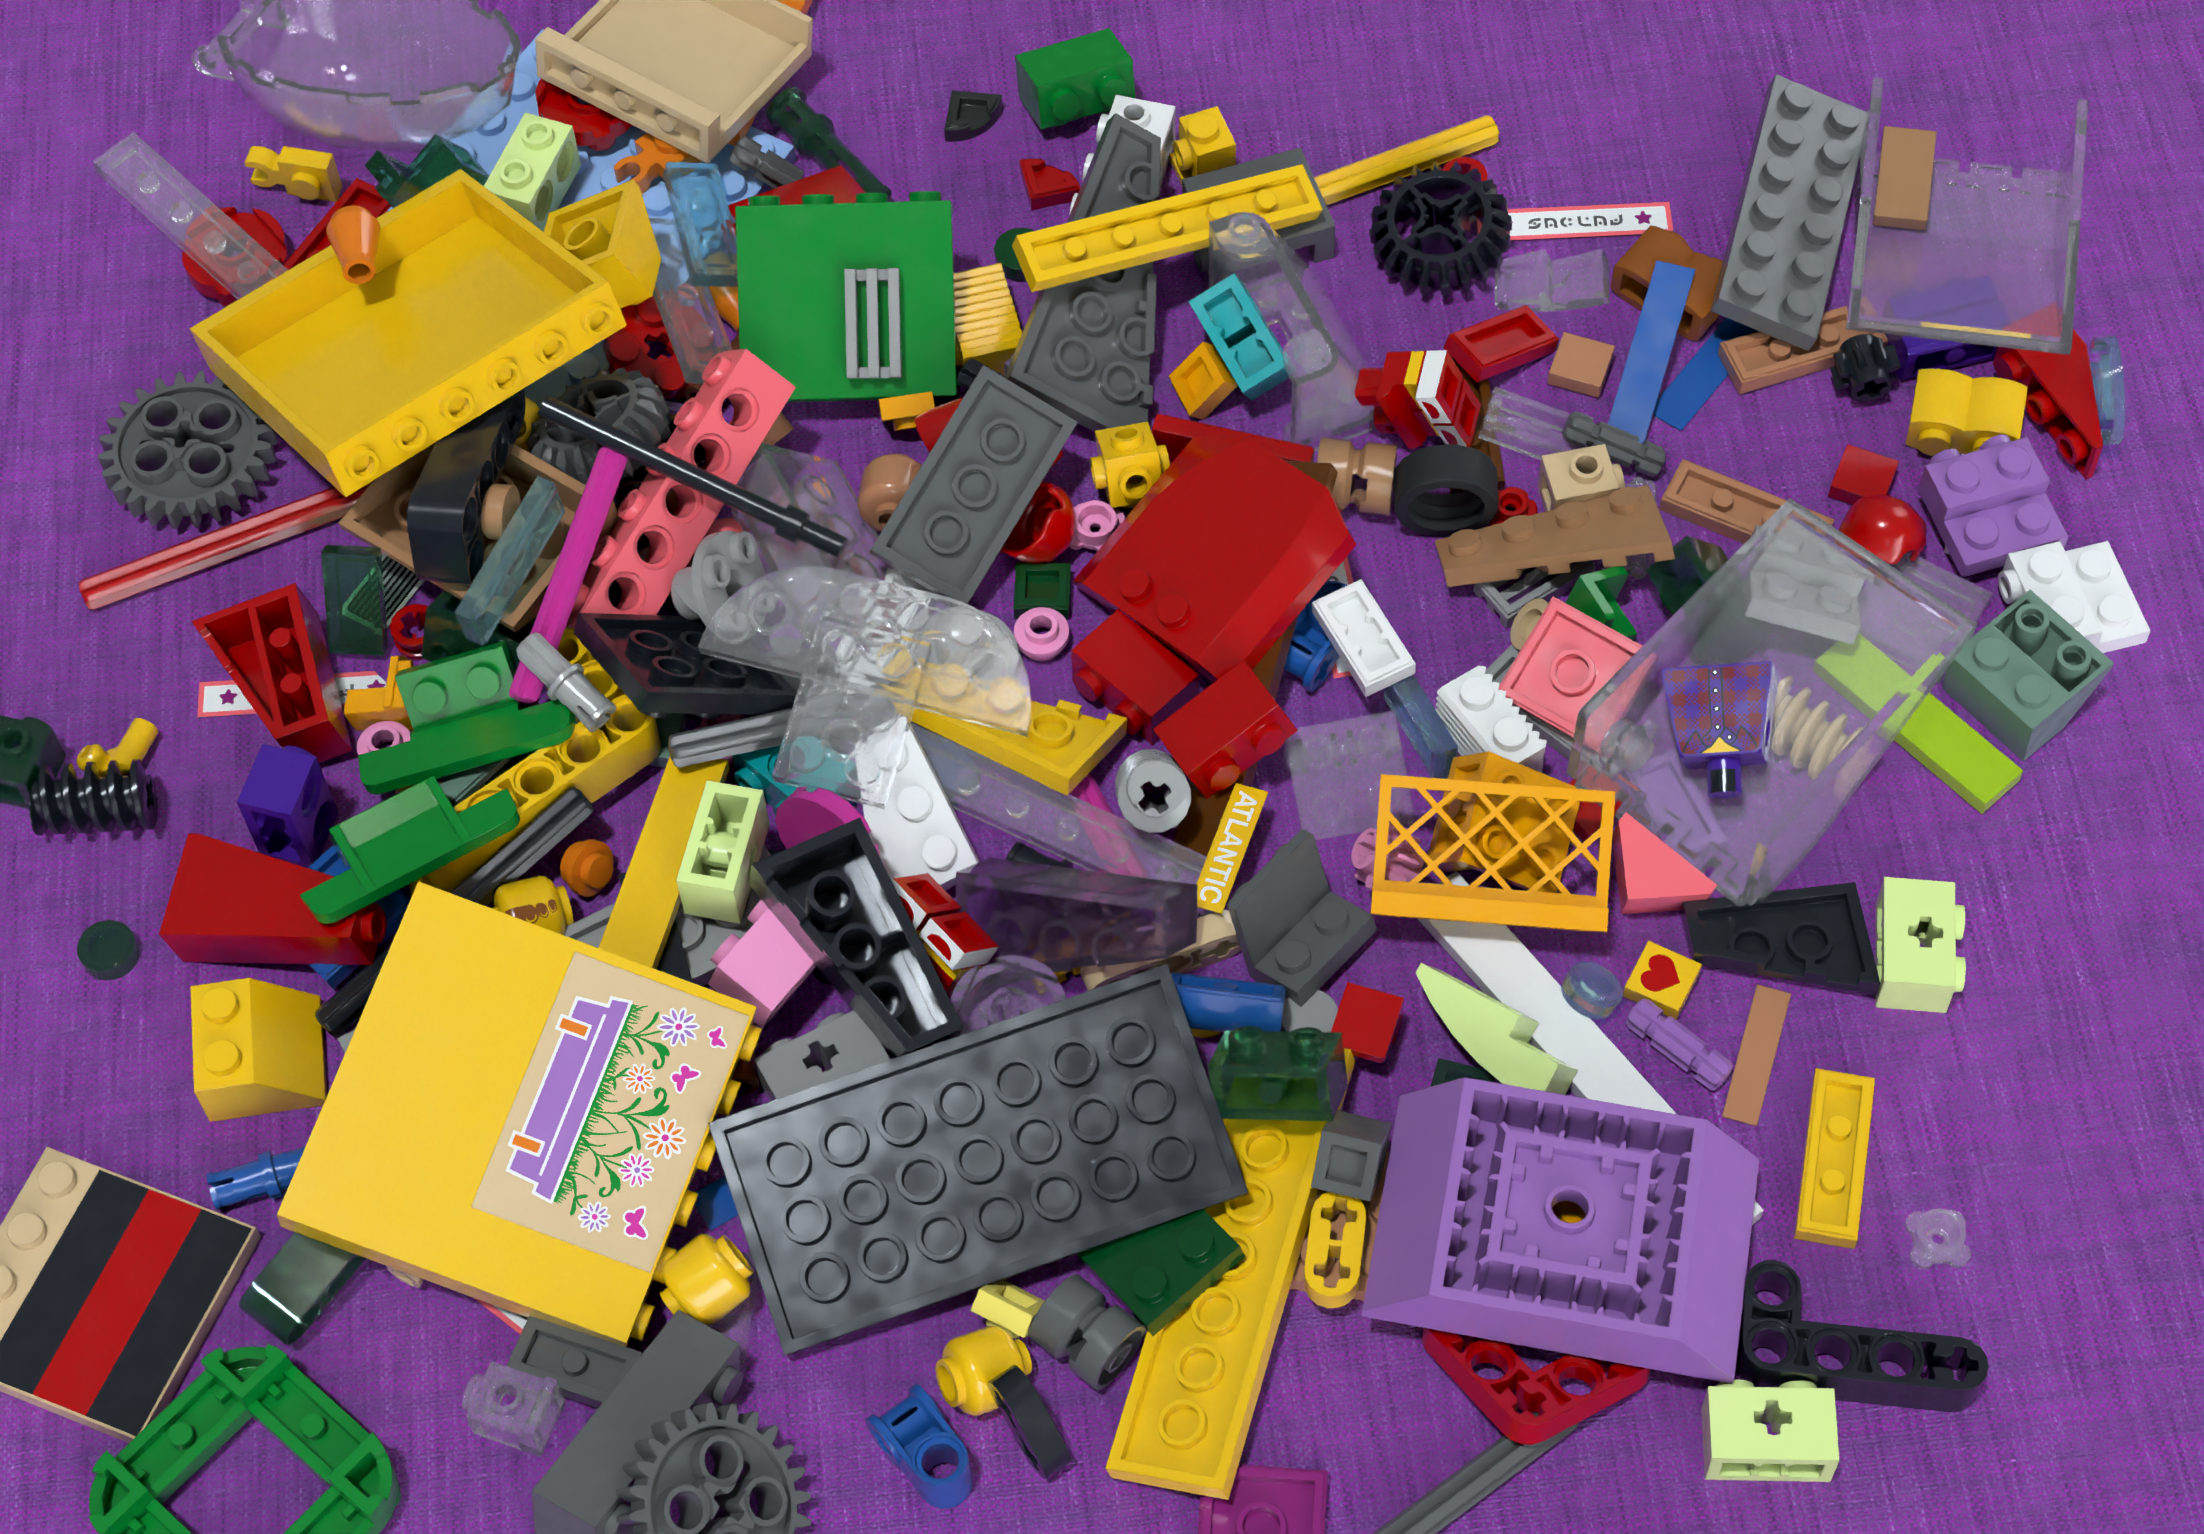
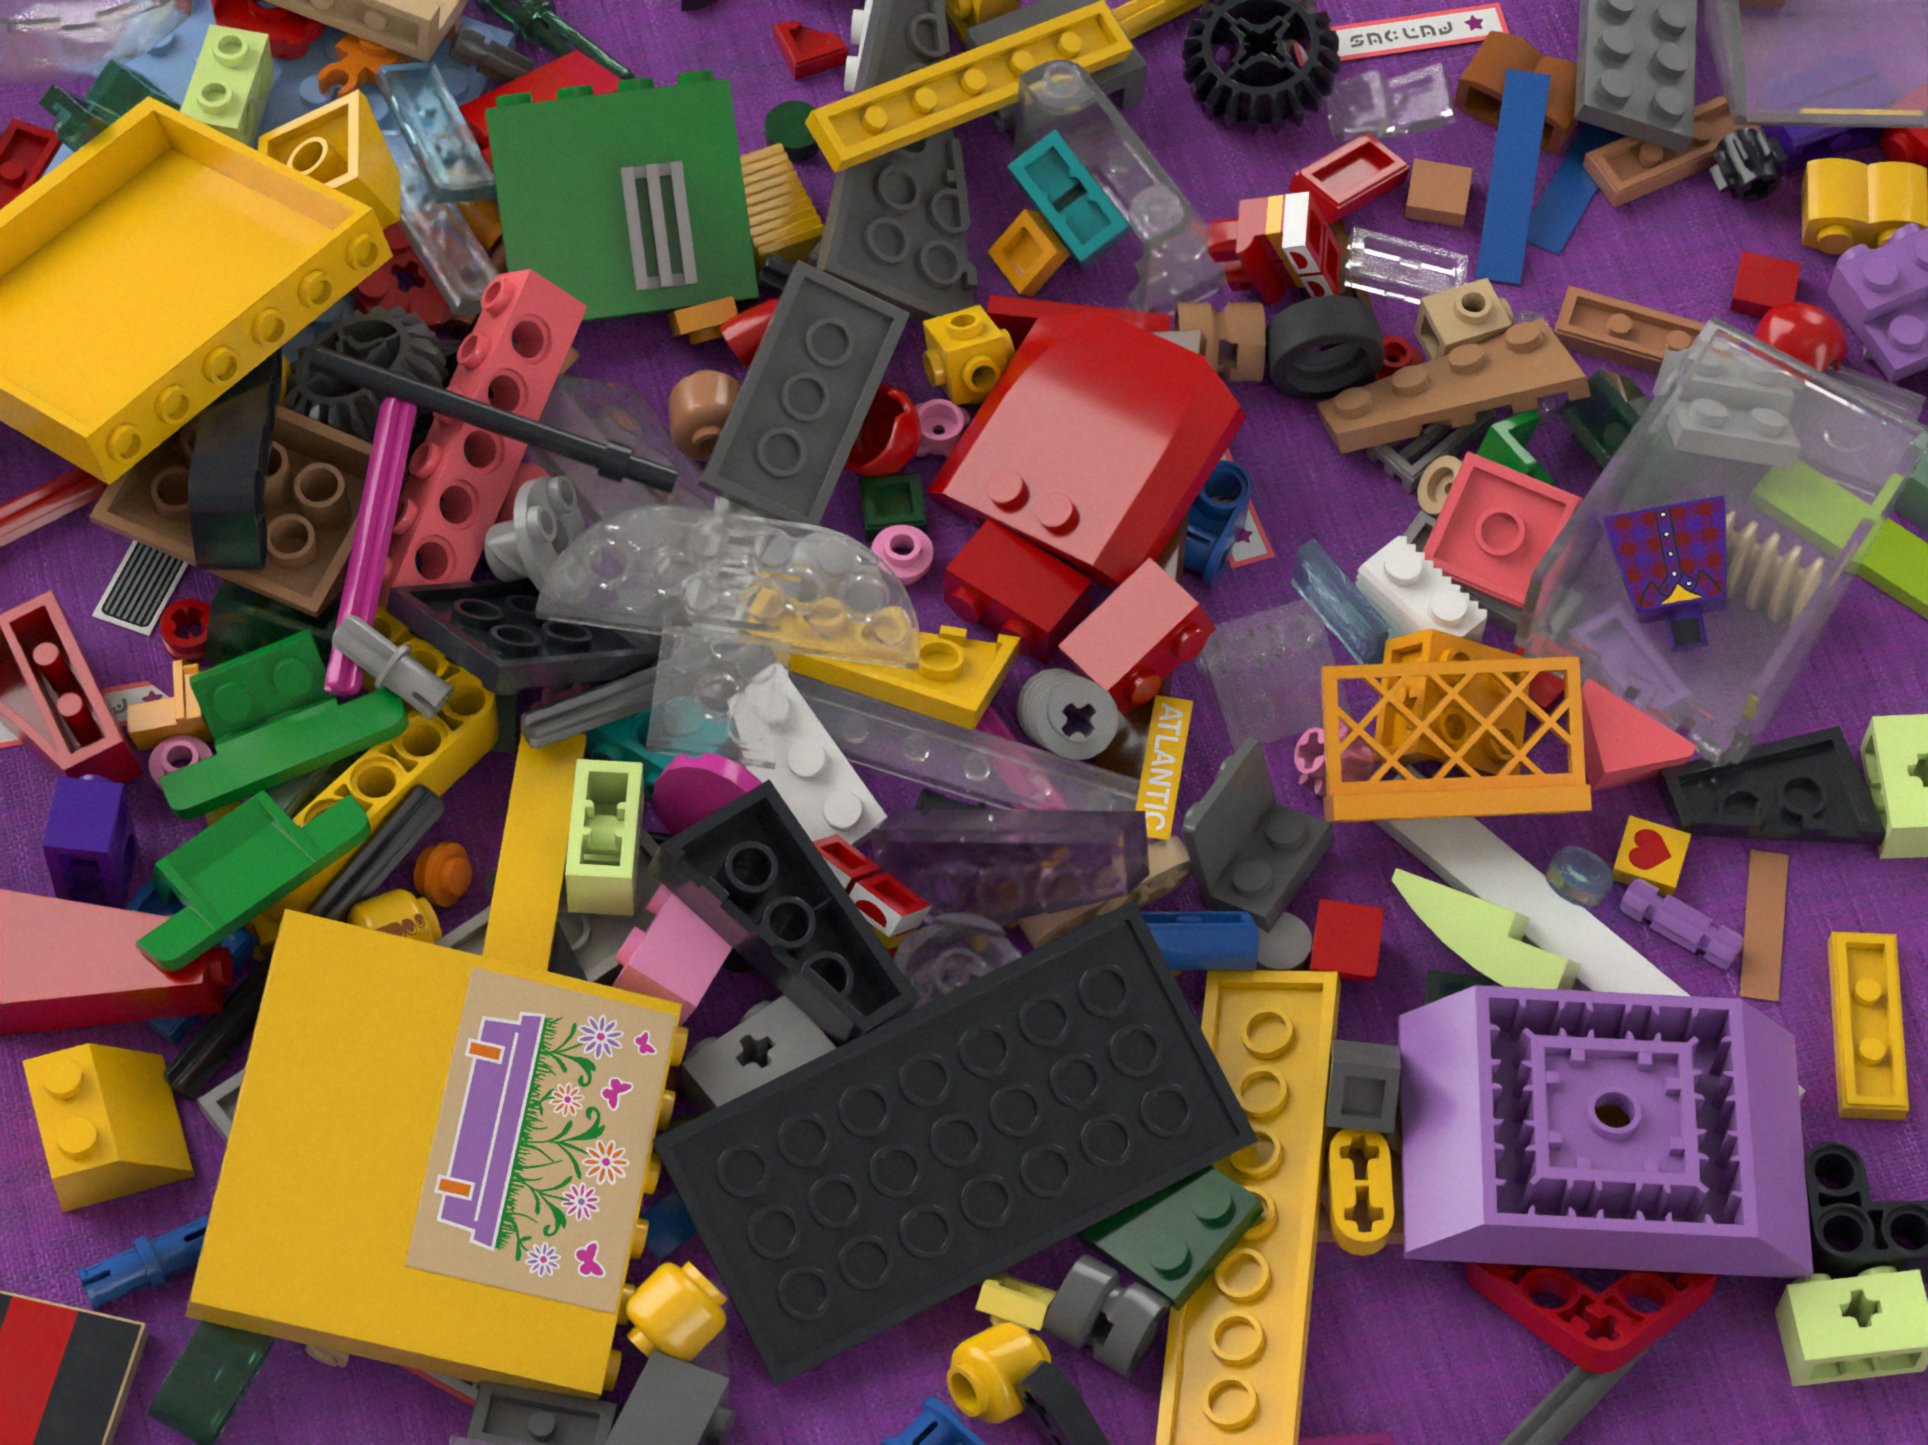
camera: 15 degrees left, 0 degrees up
(354, 600) = (118, 602): tile -> none
(355, 241) = (50, 191): orange cone -> none
(498, 509) = (282, 483): medium nougat tile -> none
(510, 561) = (304, 538): clear light blue tile -> none
(1278, 1074) = (1270, 1007): clear green brick -> none
(1363, 638) = (1267, 519): white plate -> none
(1621, 445) = (1506, 279): dark grey axle -> none
(1628, 745) = (1577, 605): clear plate -> none

